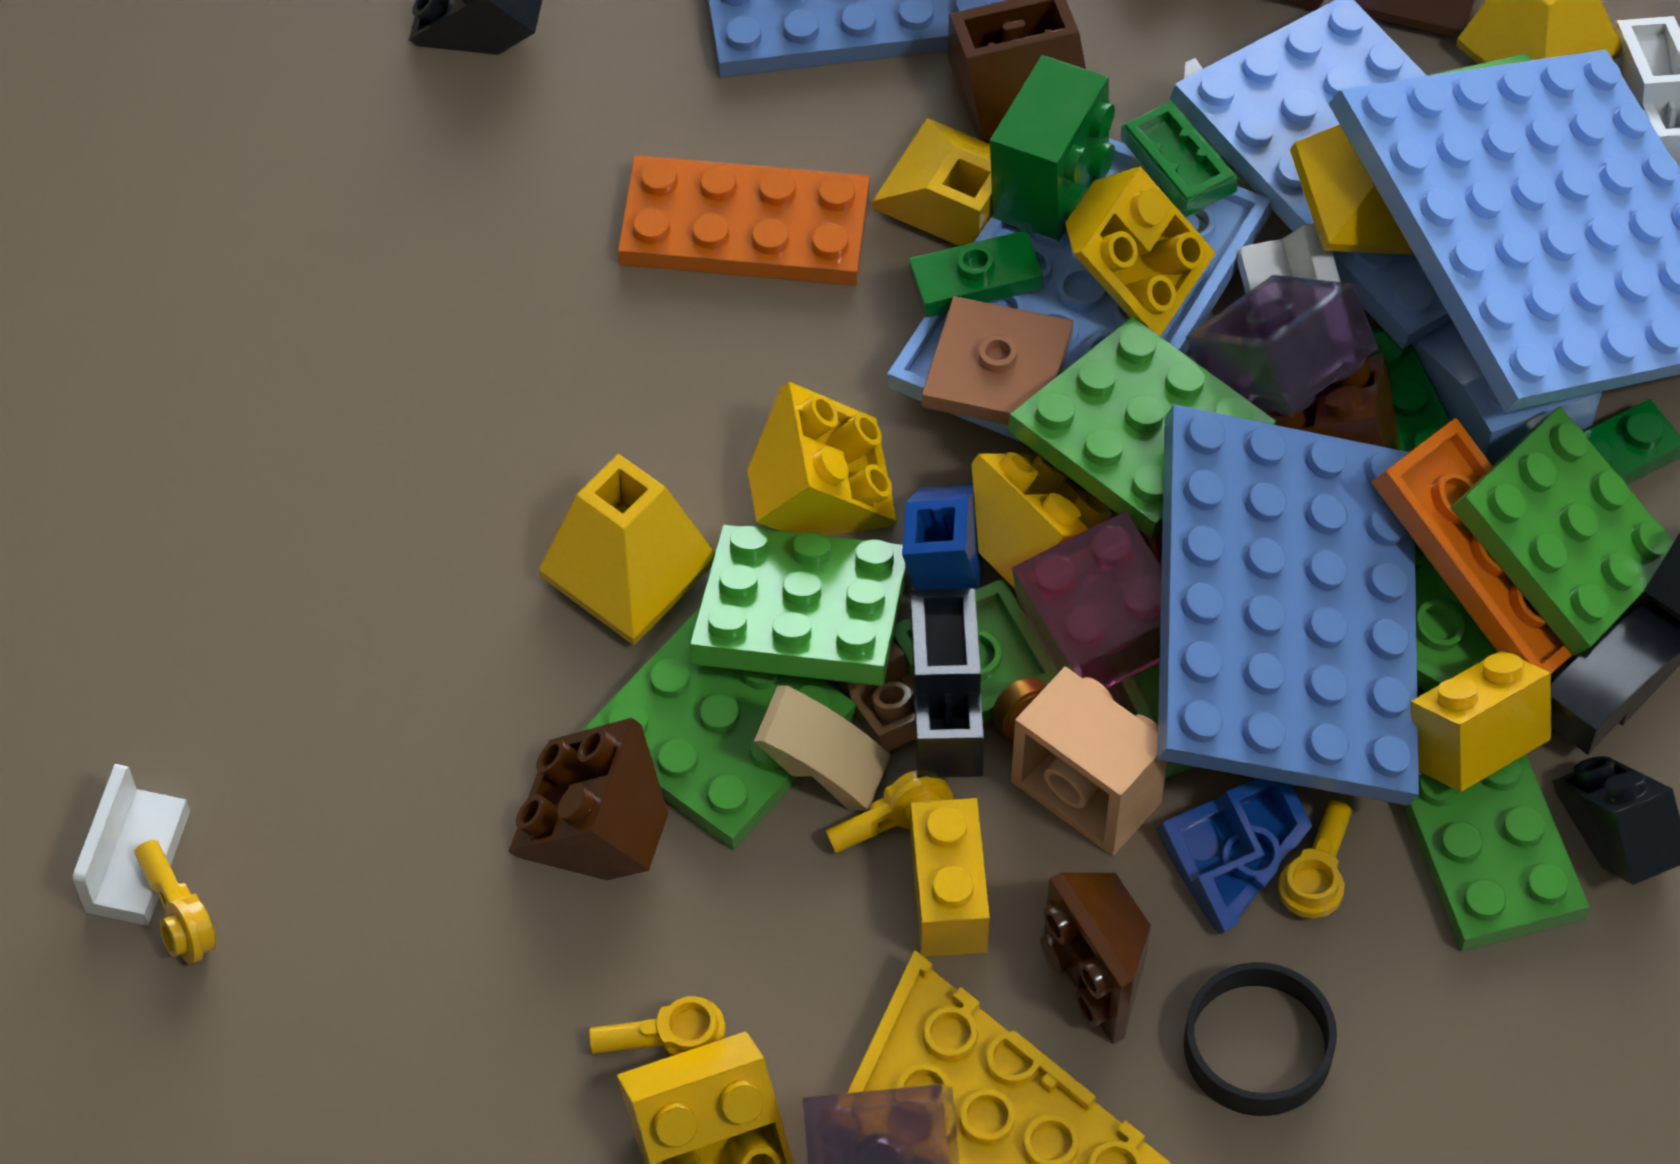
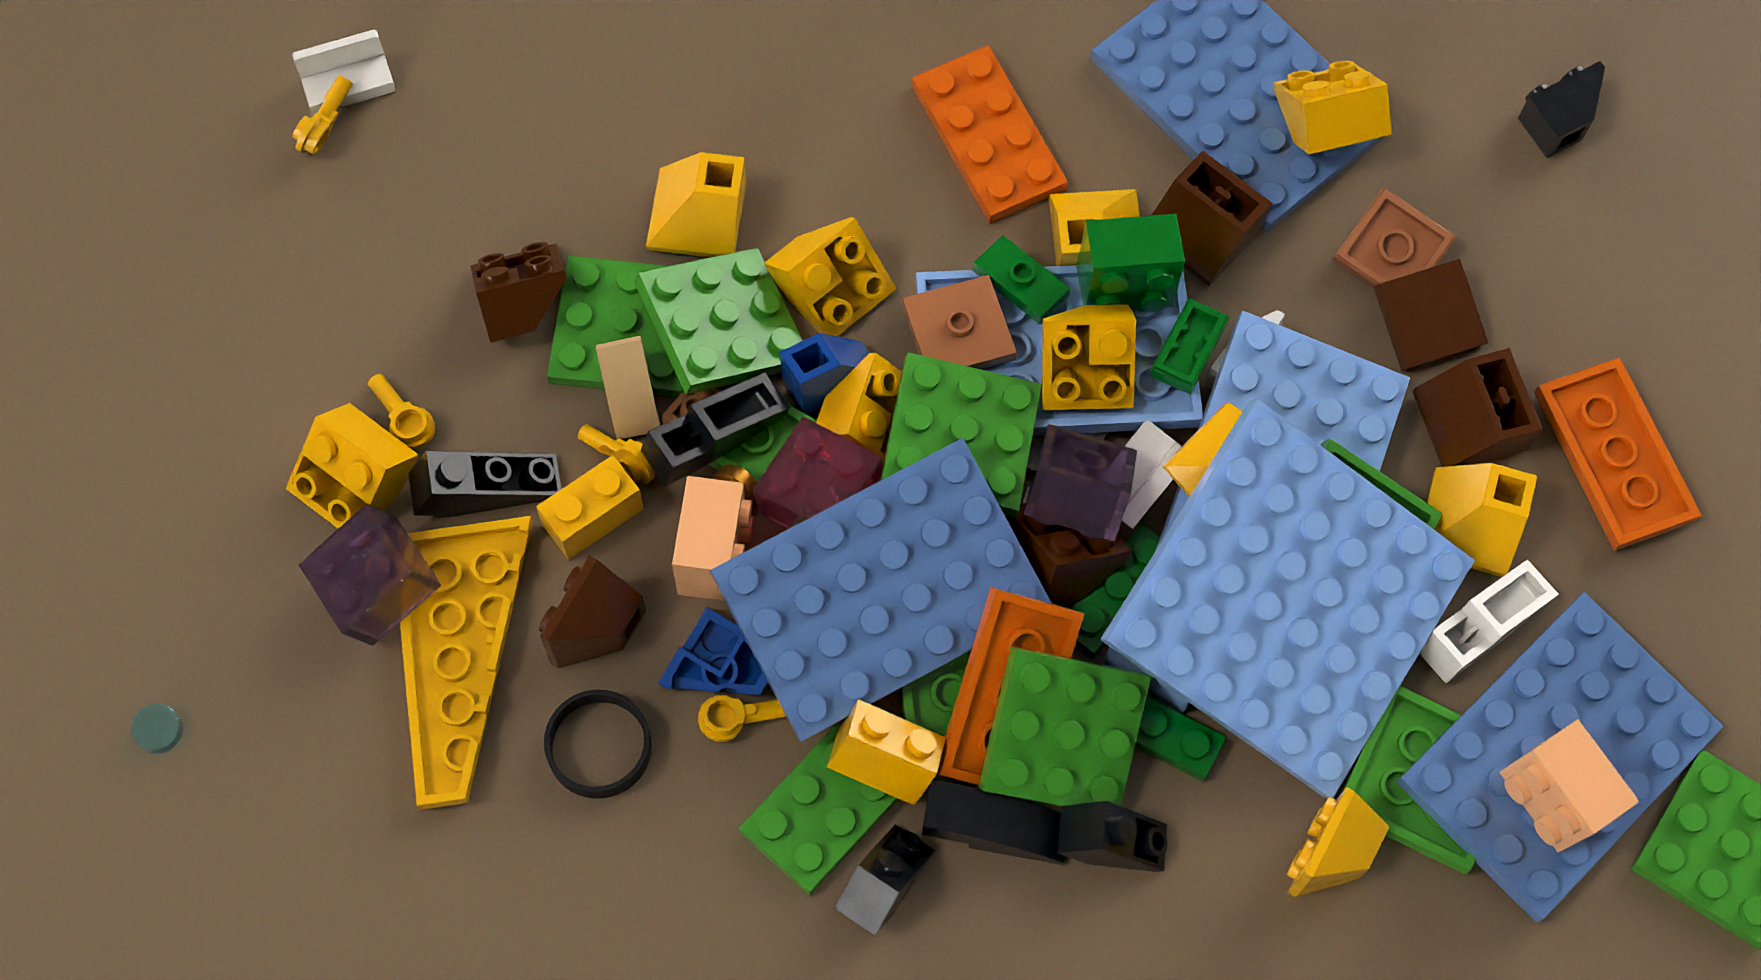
camera: 55 degrees right, 10 degrees up
(826, 986) = (480, 481): none -> black slope

